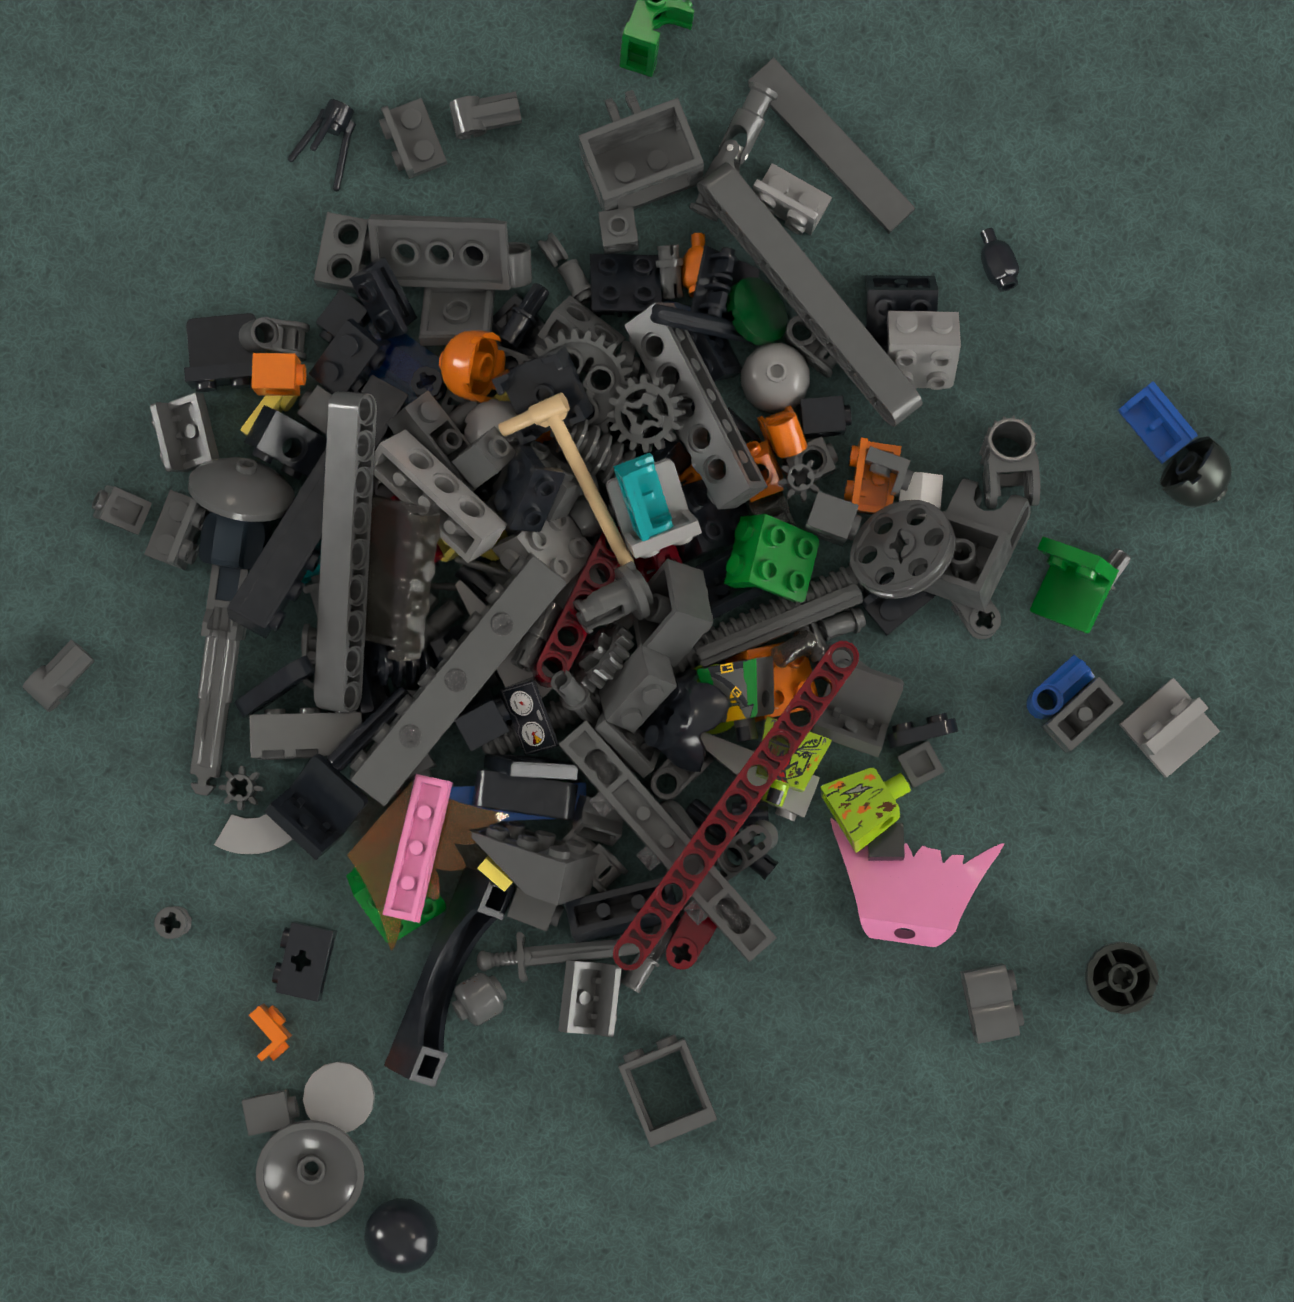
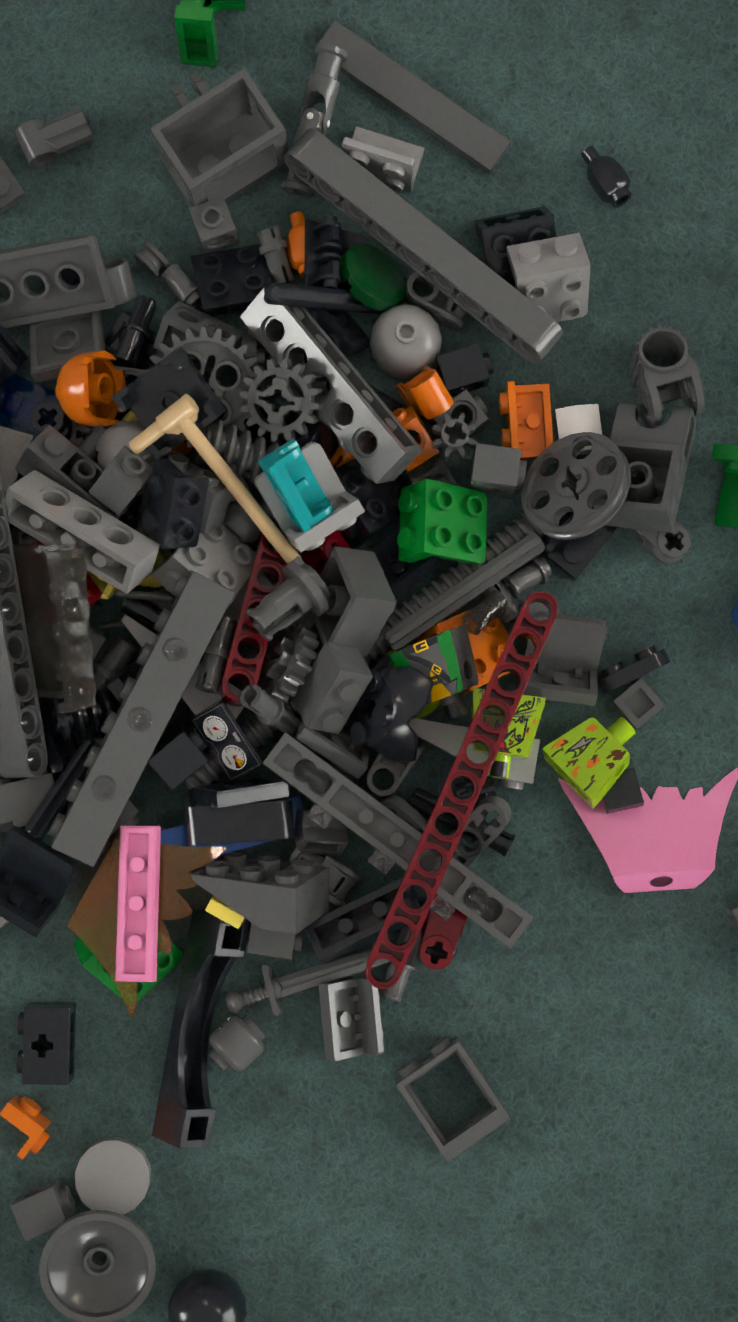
camera: 15 degrees left, 0 degrees up
(887, 463) = (537, 402): dark grey bracket -> none

